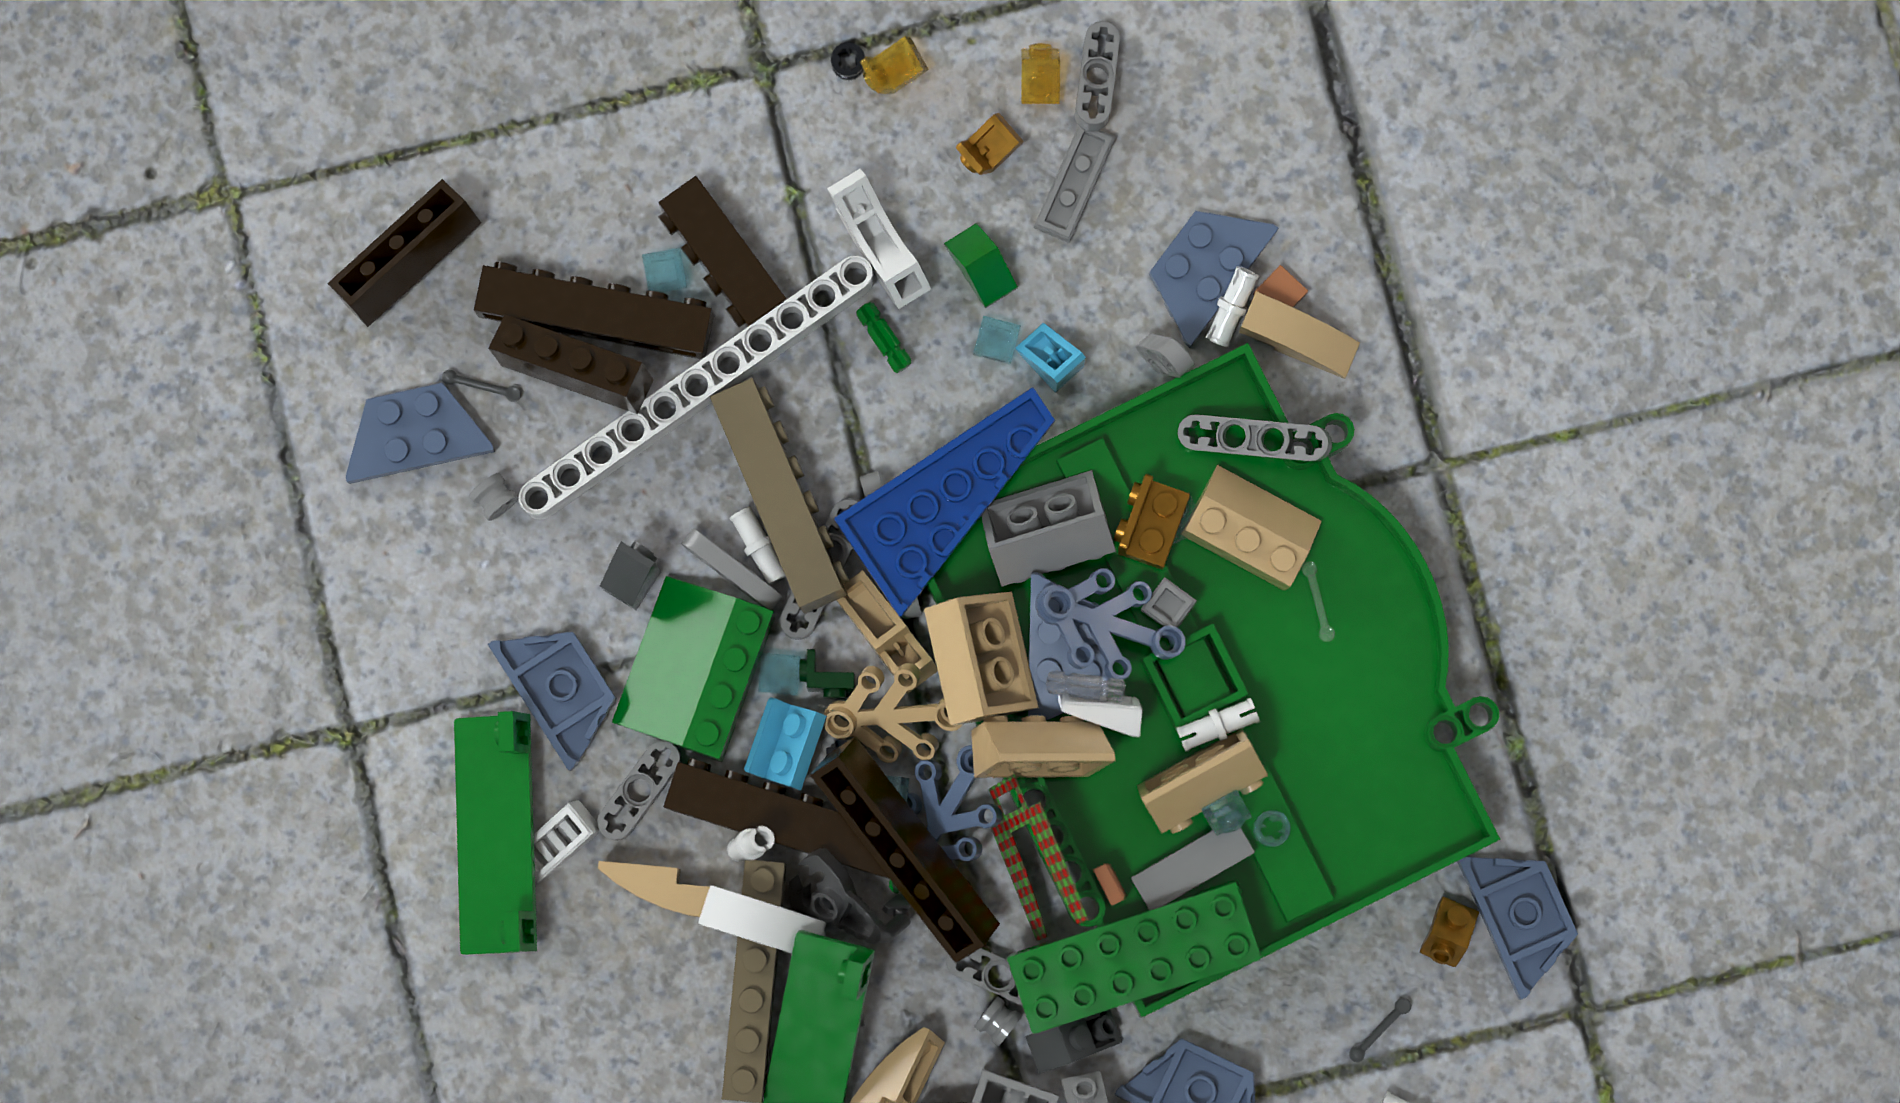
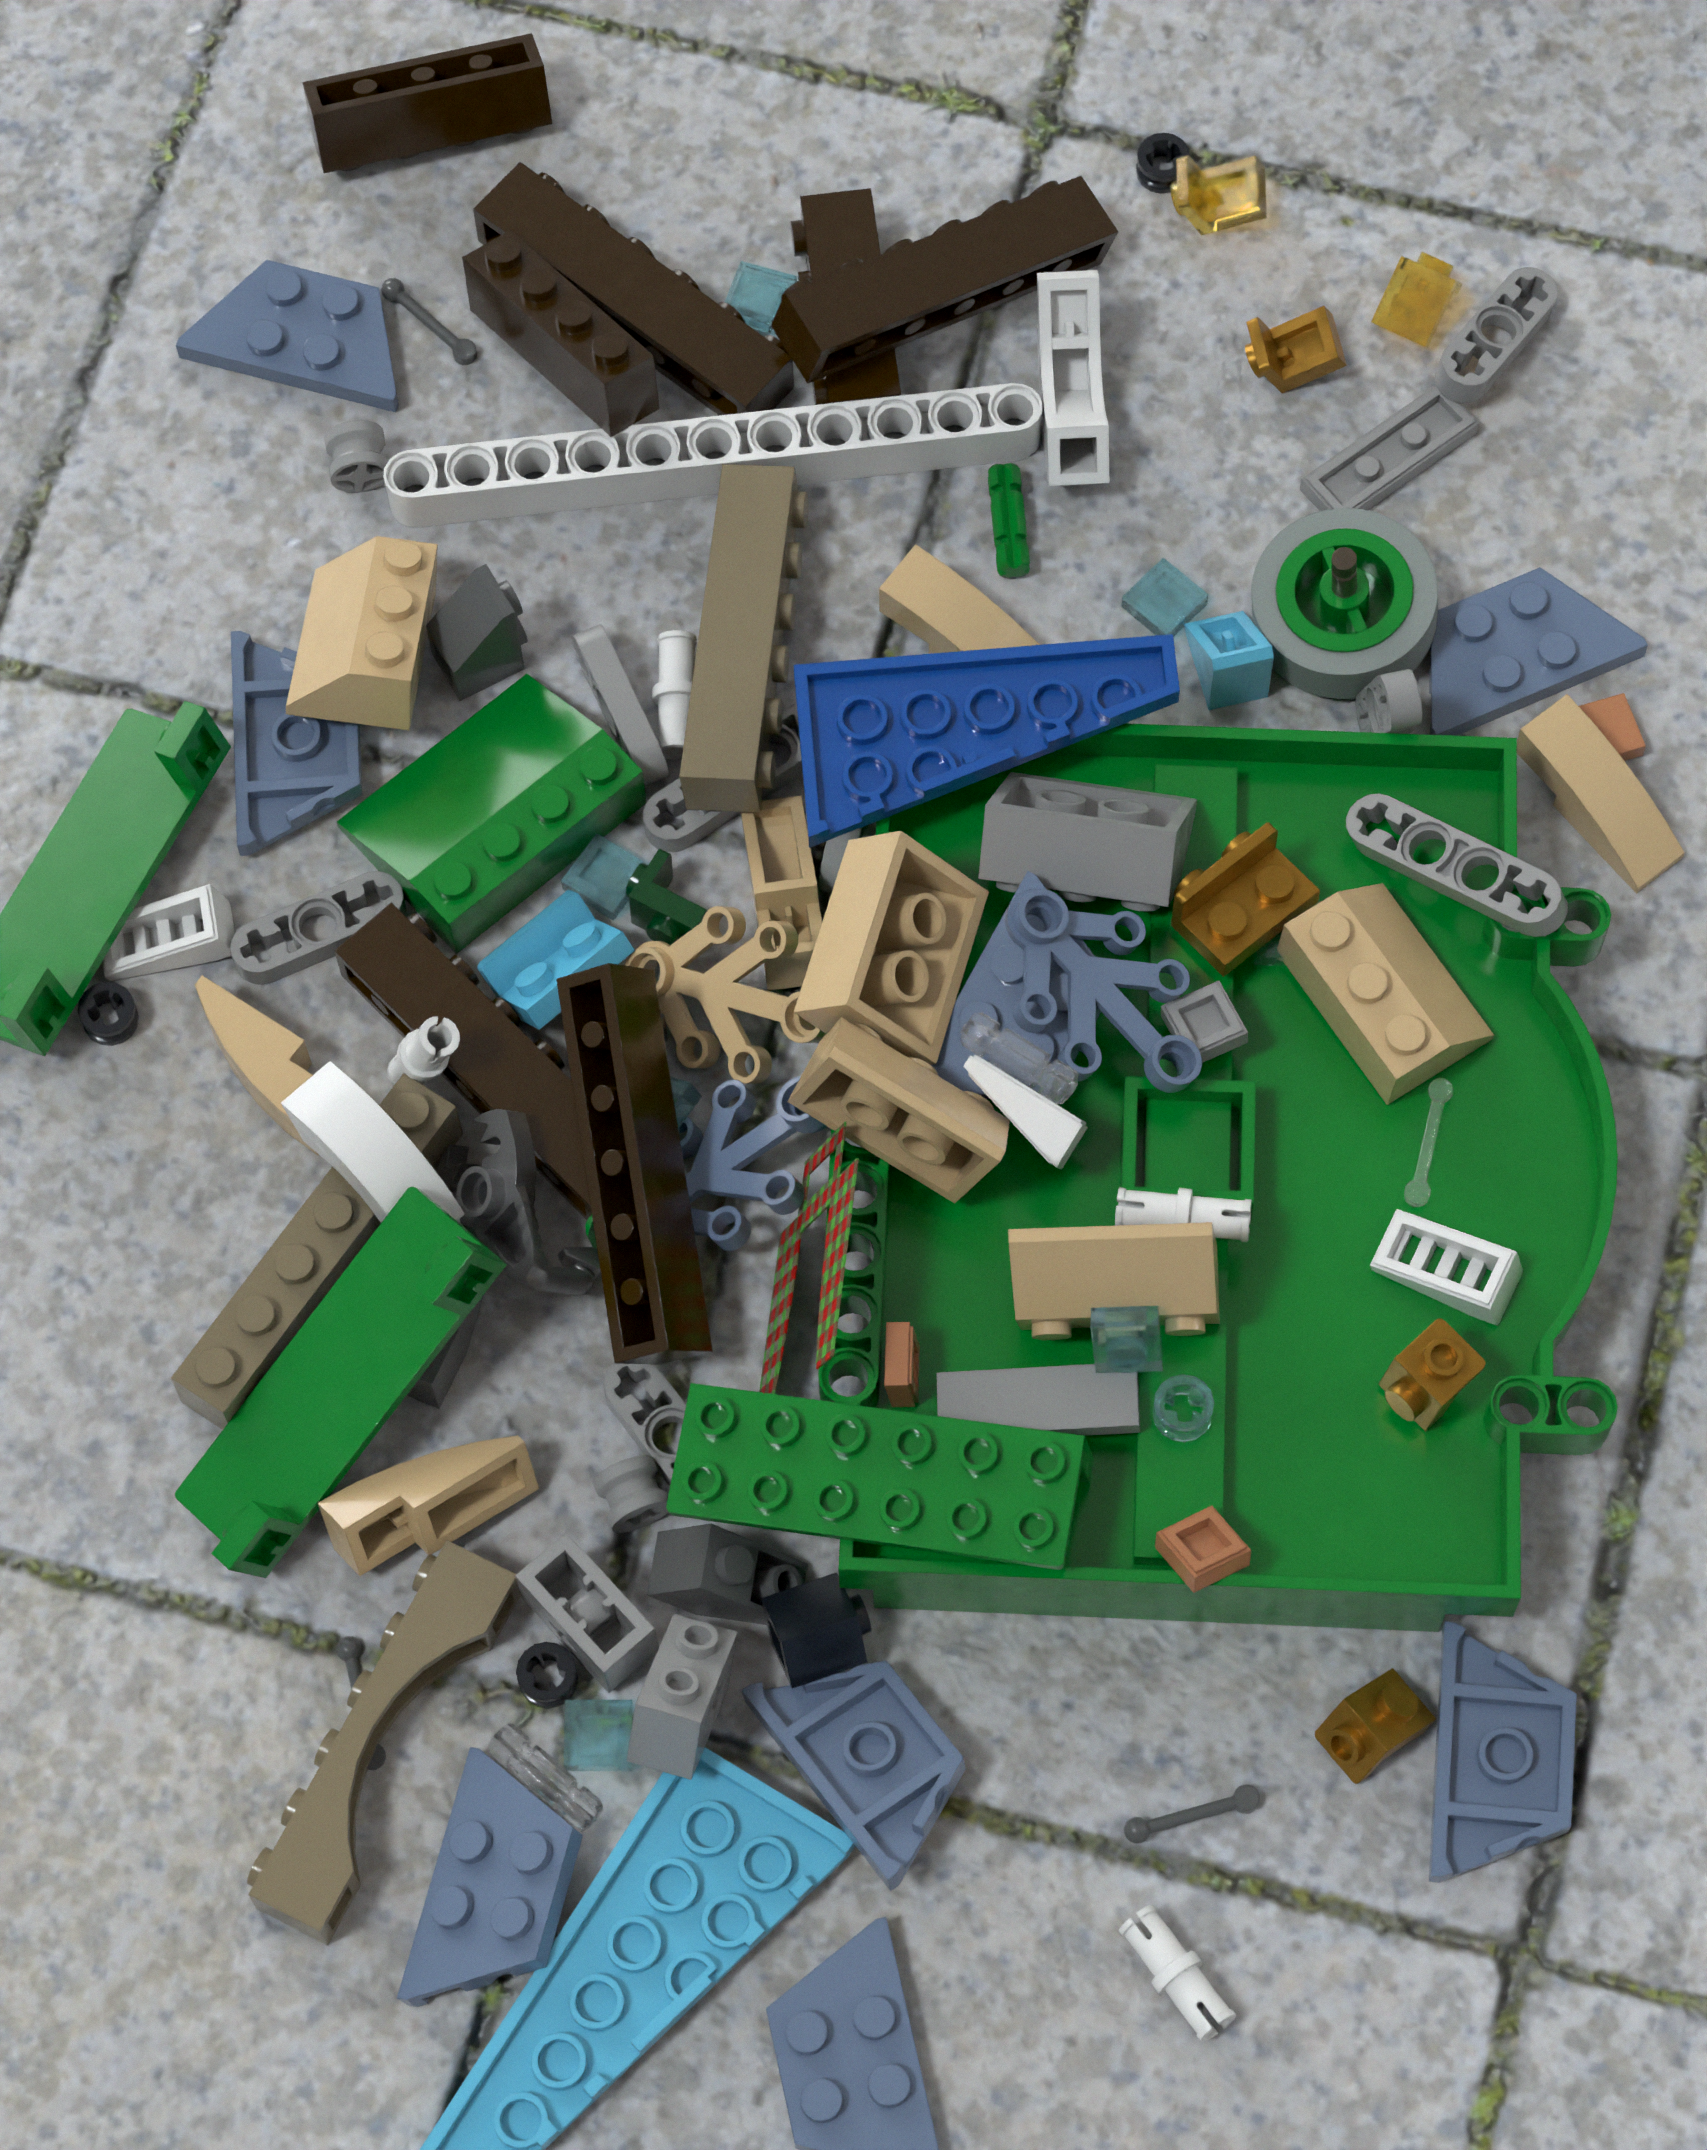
camera: 30 degrees right, 15 degrees down
(565, 901) = (127, 1014): none -> black bush
(567, 609) = (366, 634): none -> tan slope
(772, 214) = (941, 277): none -> dark brown brick
(900, 421) = (946, 608): none -> tan slope
(981, 265) = (1198, 498): green slope -> none
(1102, 294) = (1344, 600): none -> wheel
(1138, 1043) = (816, 1629): none -> black brick
(1232, 306) = (1529, 700): white pin -> none
(1324, 902) = (1202, 1549): none -> nougat tile
(1392, 741) = (1430, 1374): none -> pearl gold bracket
(1398, 667) = (1463, 1296): none -> white slope

